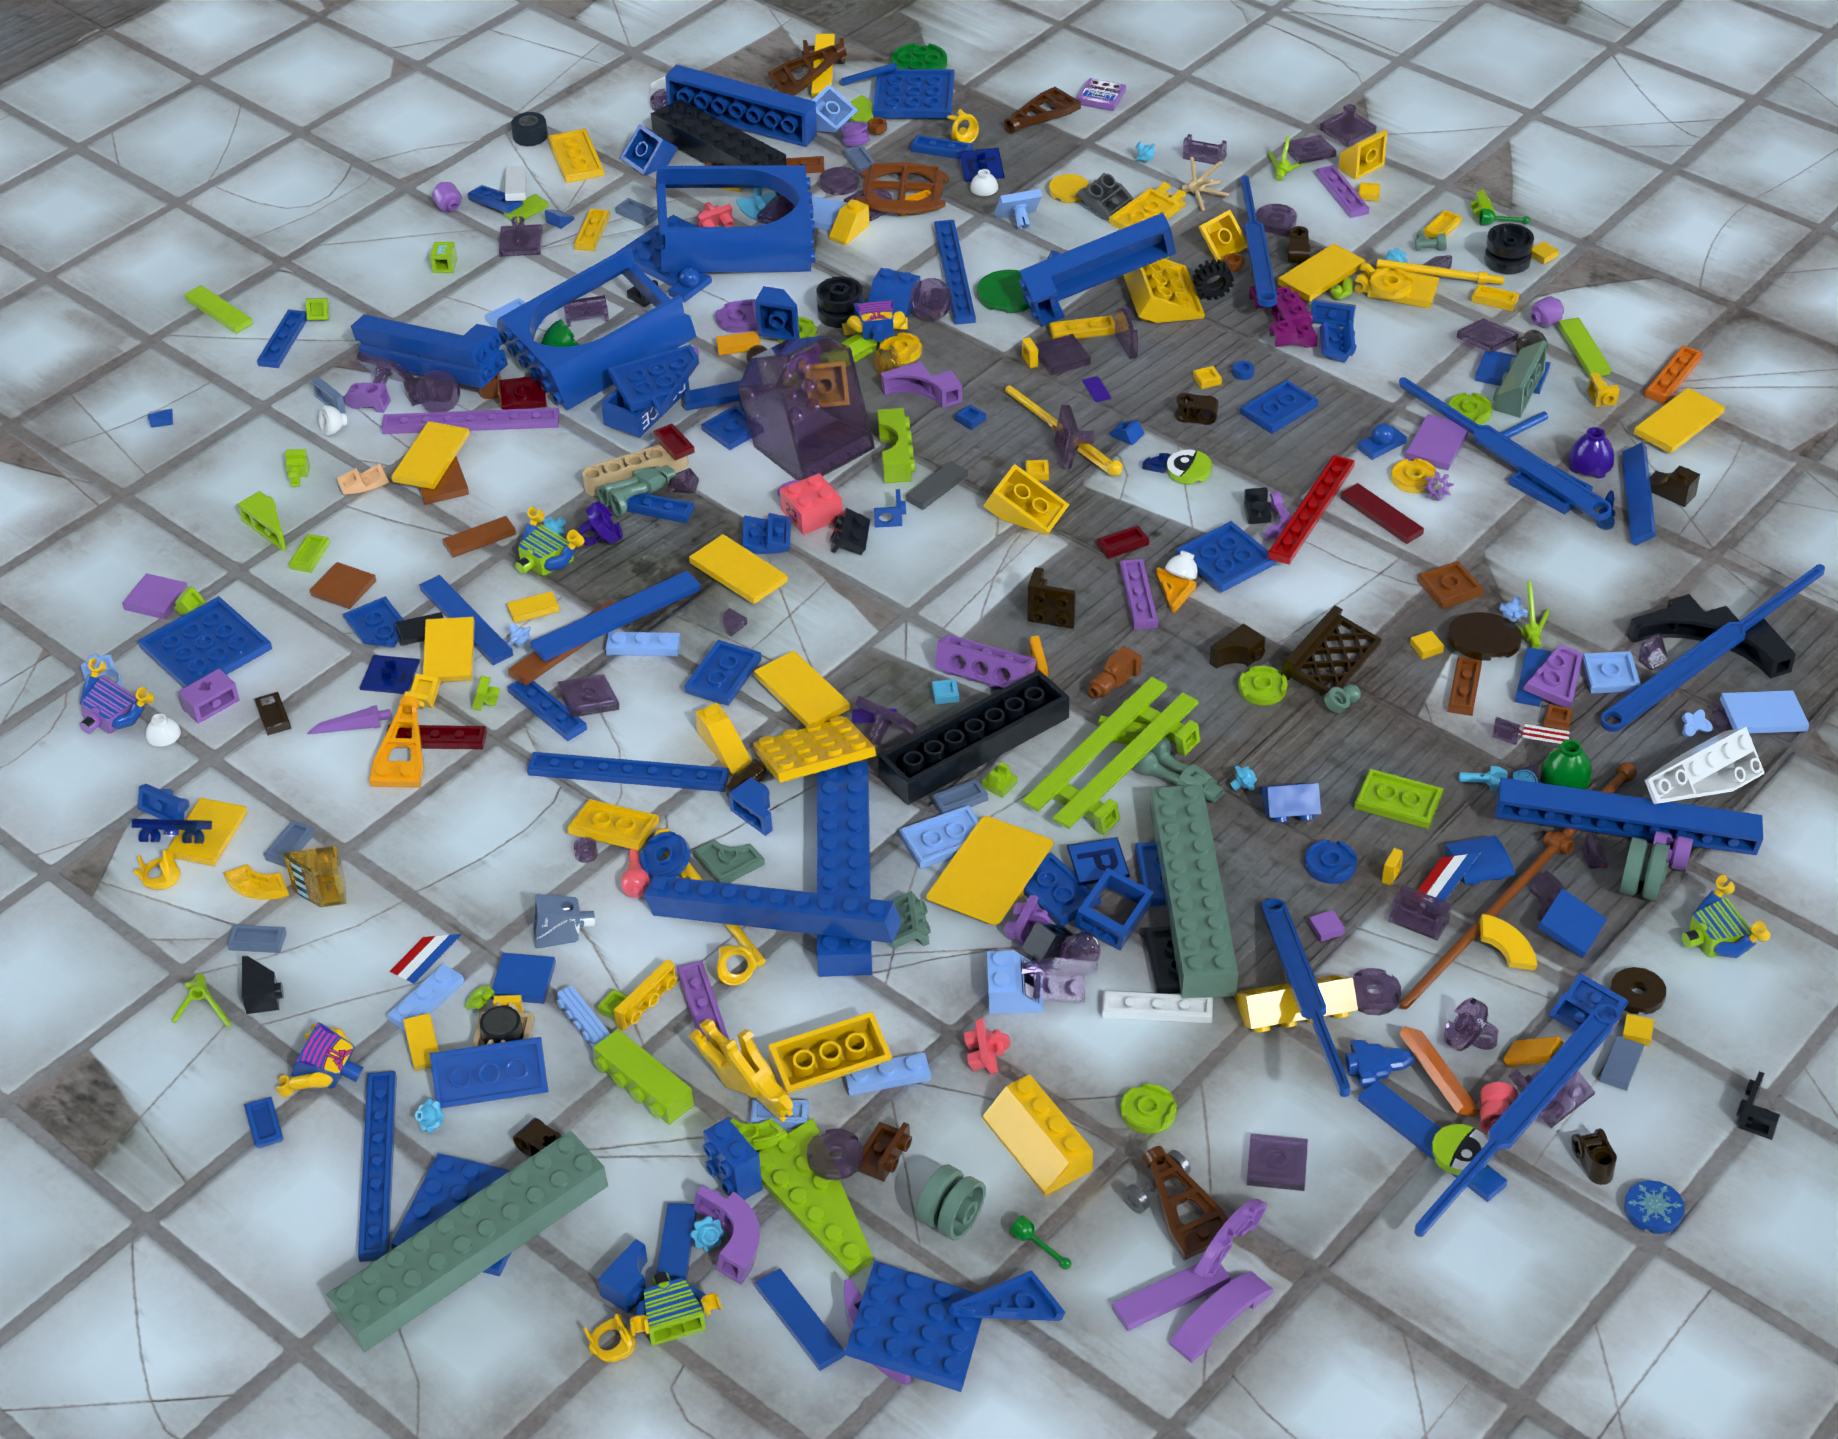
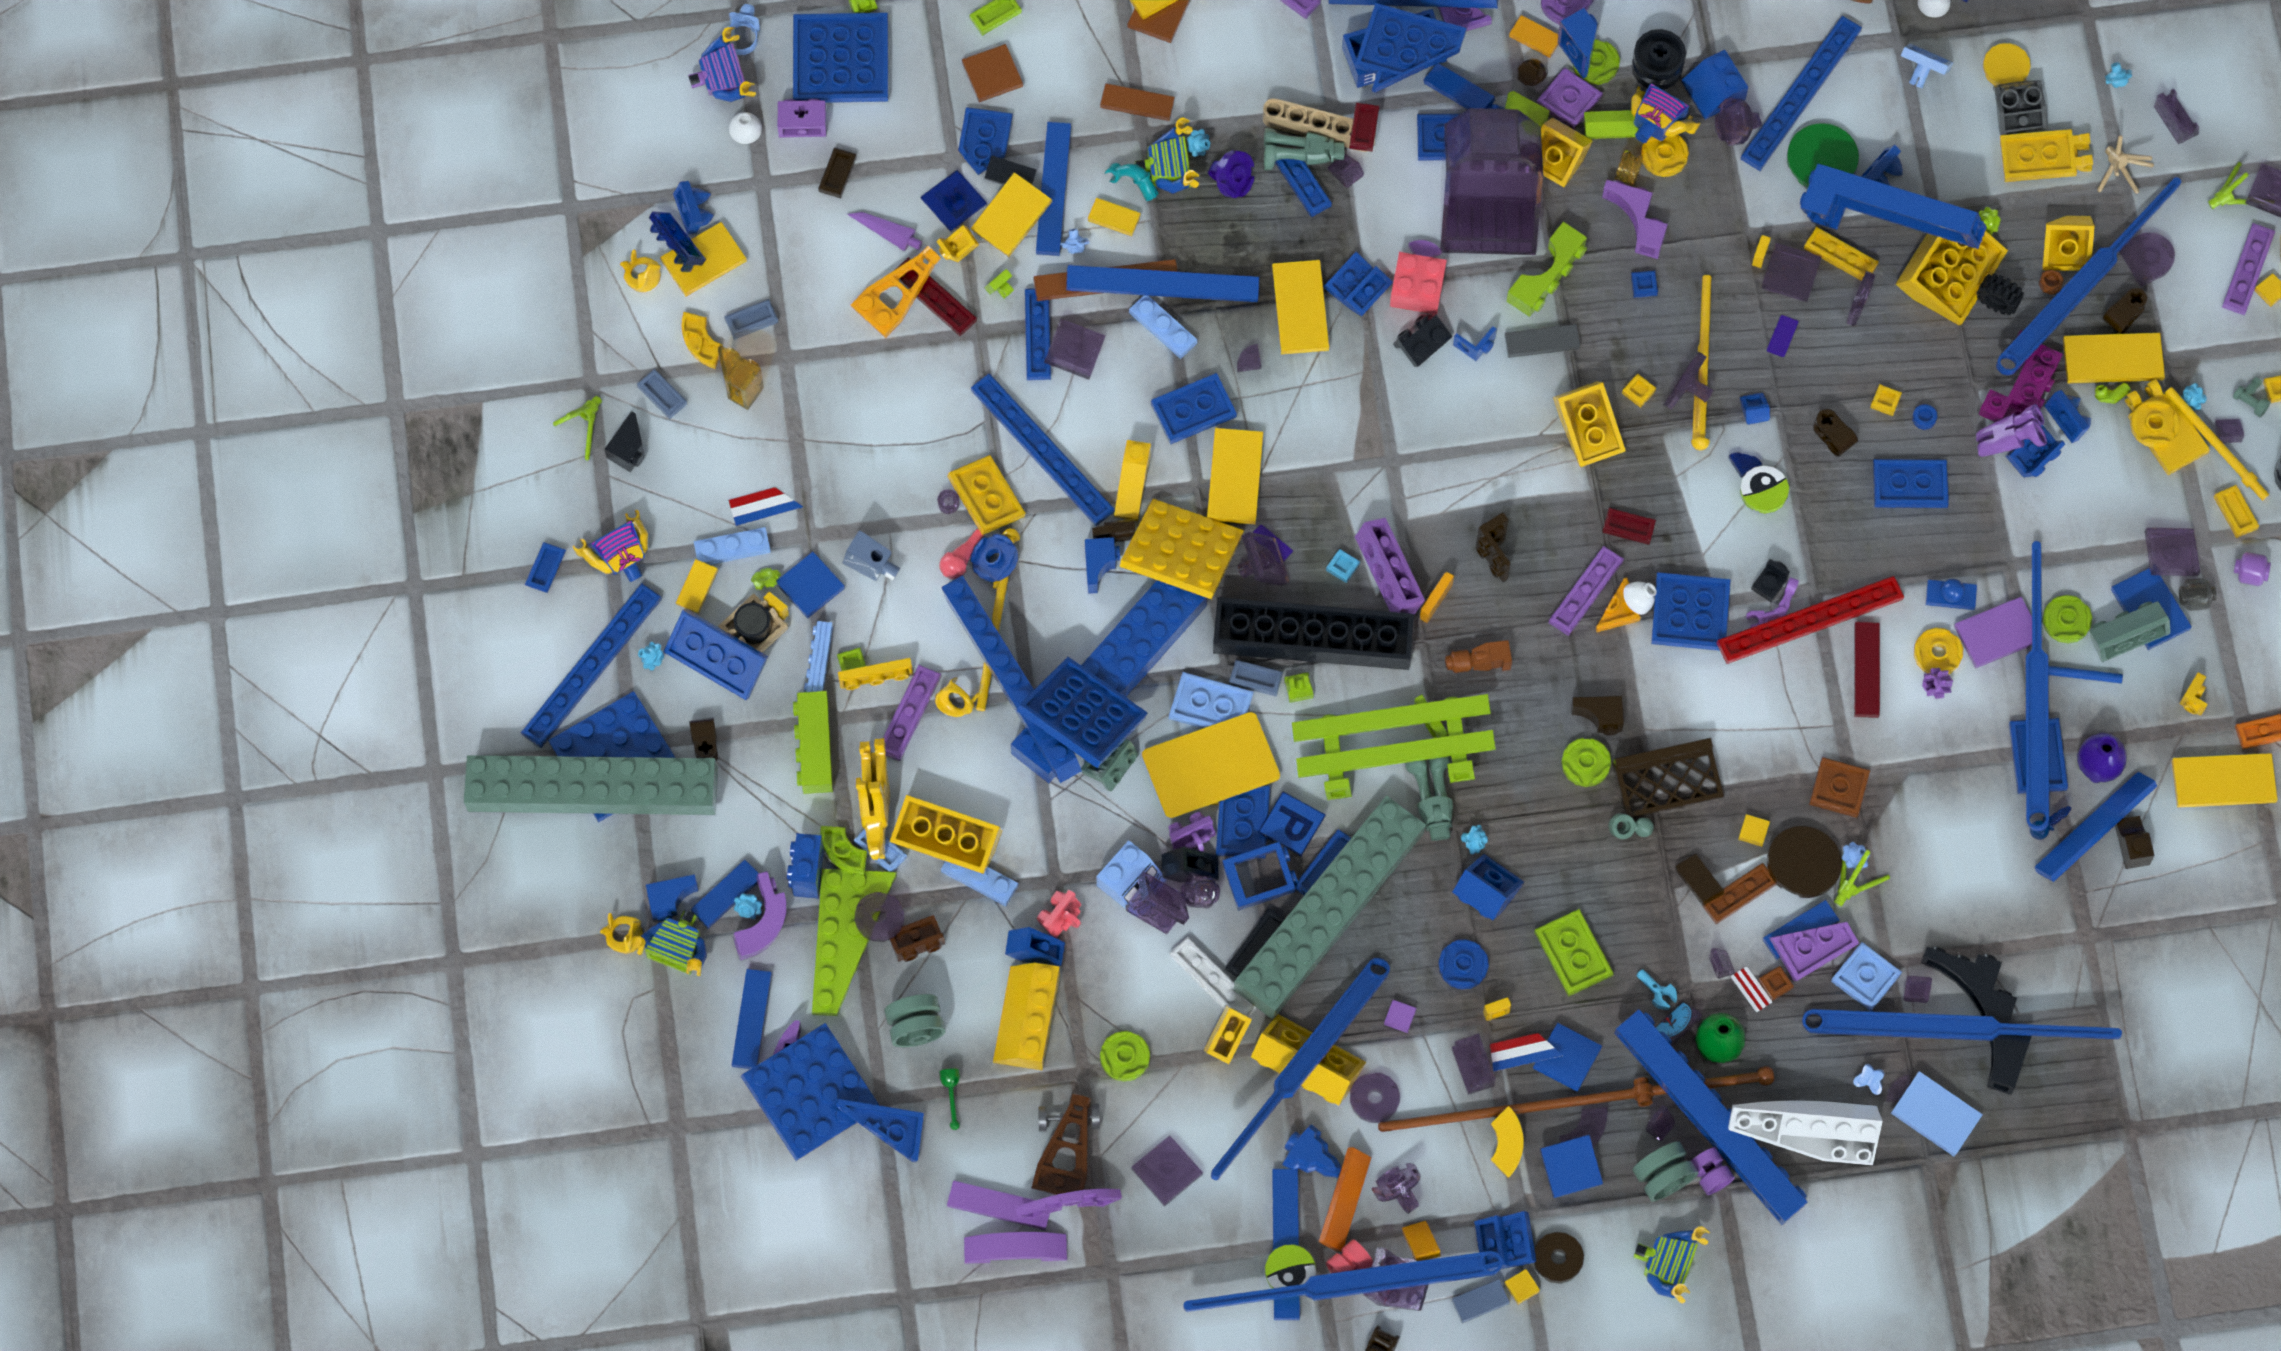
camera: 40 degrees right, 25 degrees up
(527, 565) = (1138, 175): none -> teal piece
(728, 863) = (1037, 598): sand green tile -> none
(861, 878) = (1082, 712): none -> blue plate
(984, 1083) = (1034, 947): none -> blue slope
(1217, 1024) = (1227, 1034): none -> yellow brick
(1313, 334) = (2011, 431): none -> medium lavender piece
(1430, 693) = (1699, 879): none -> dark brown tile
(1584, 346) = (2244, 632): lime tile -> none

